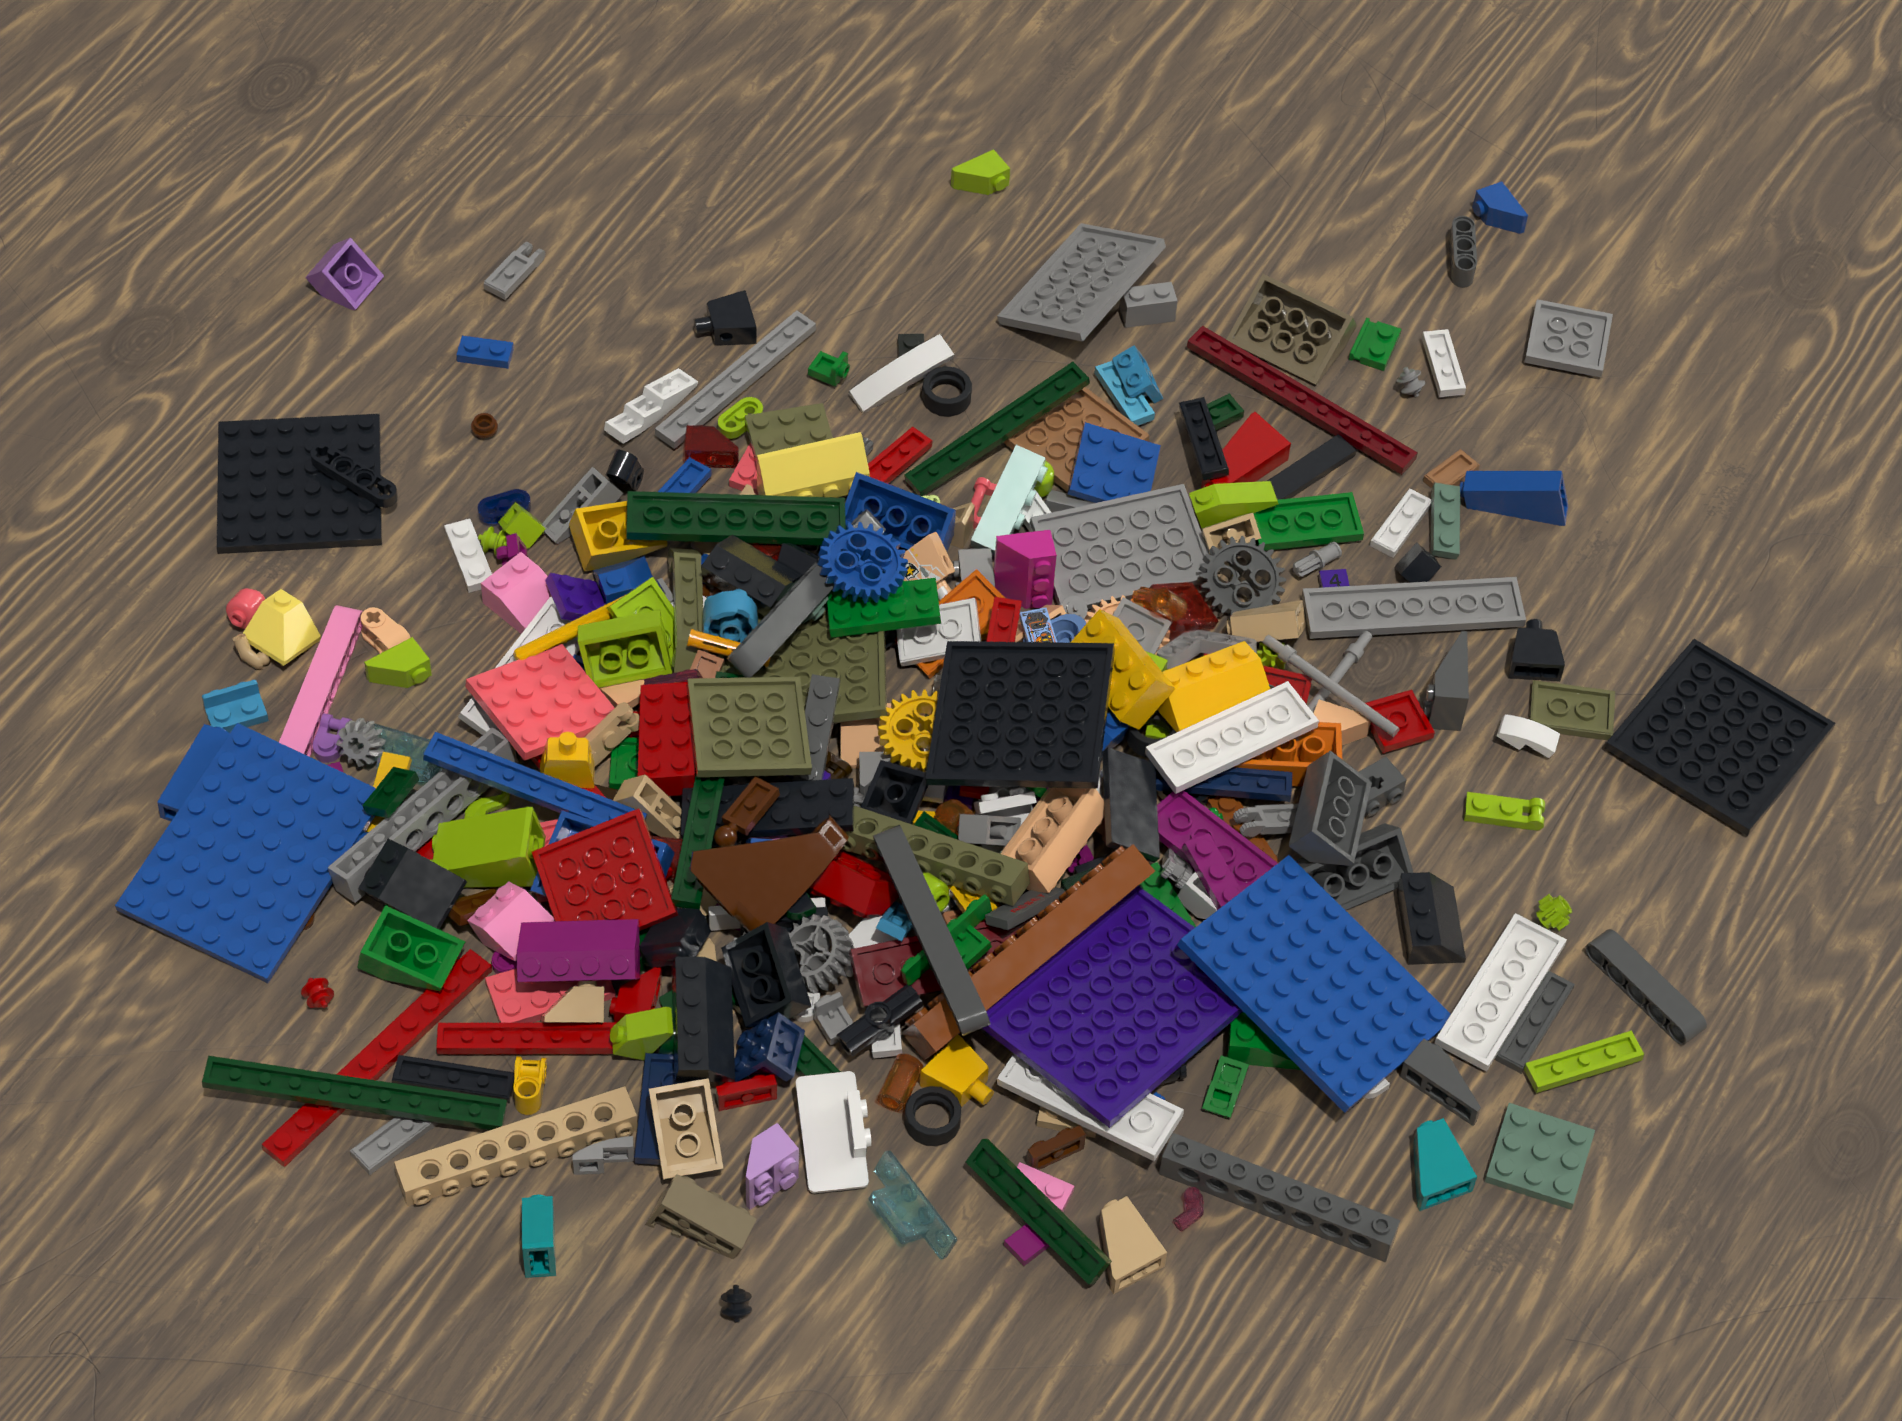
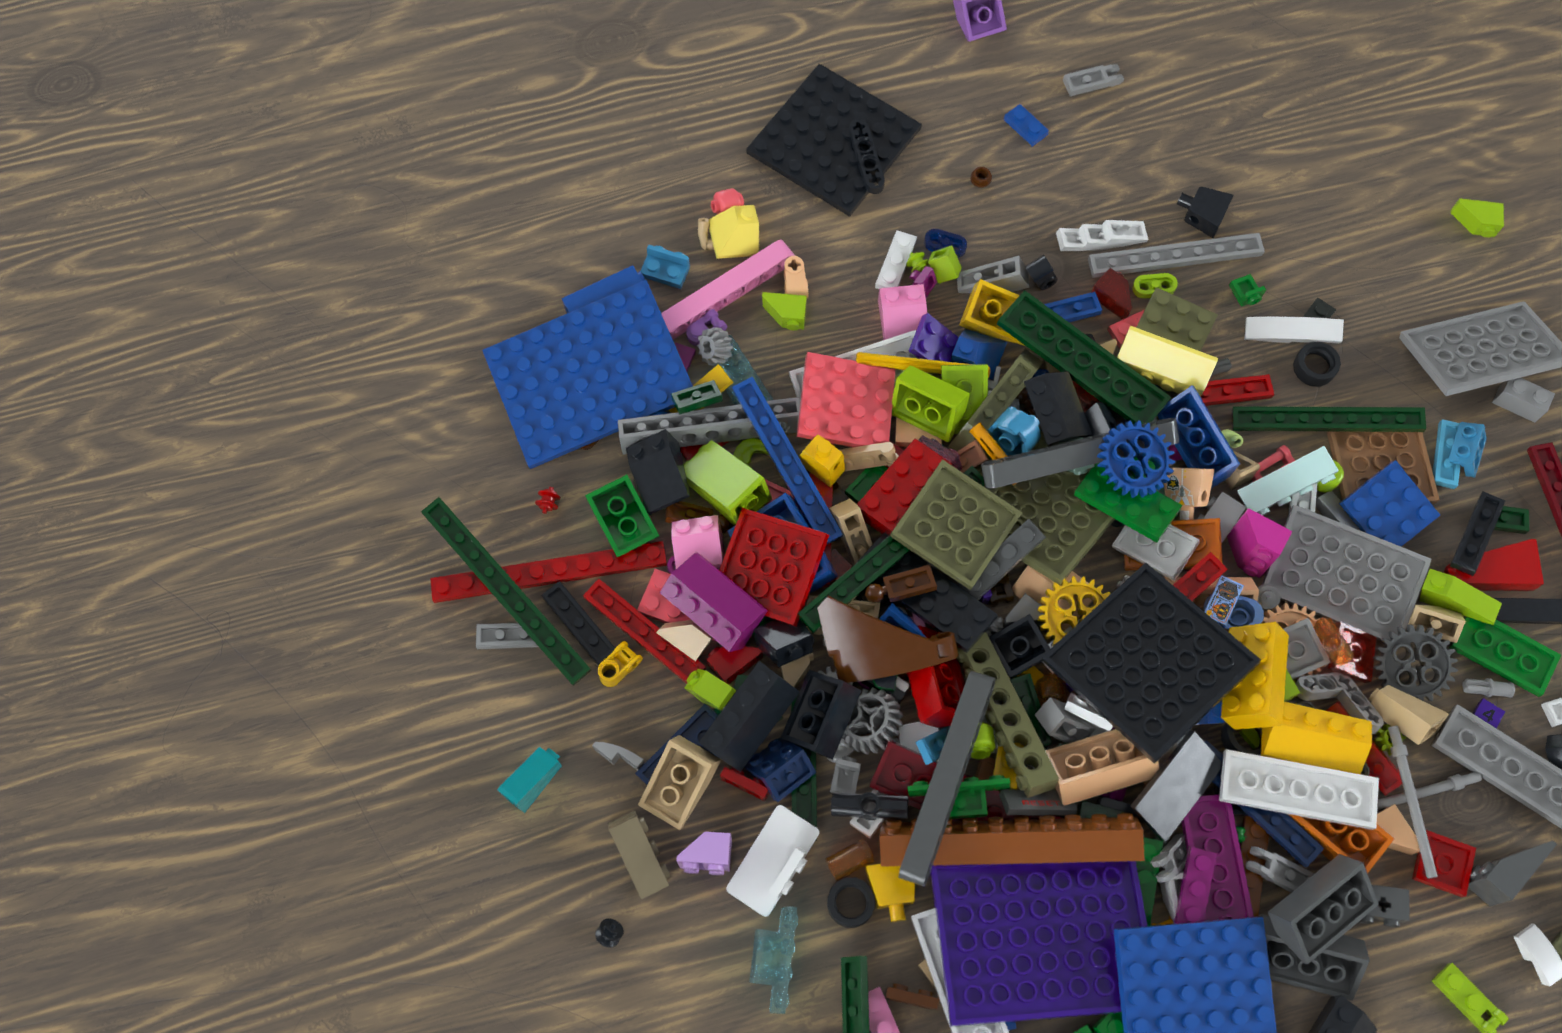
camera: 45 degrees right, 15 degrees up
(524, 1133) = (495, 671): tan brick -> none

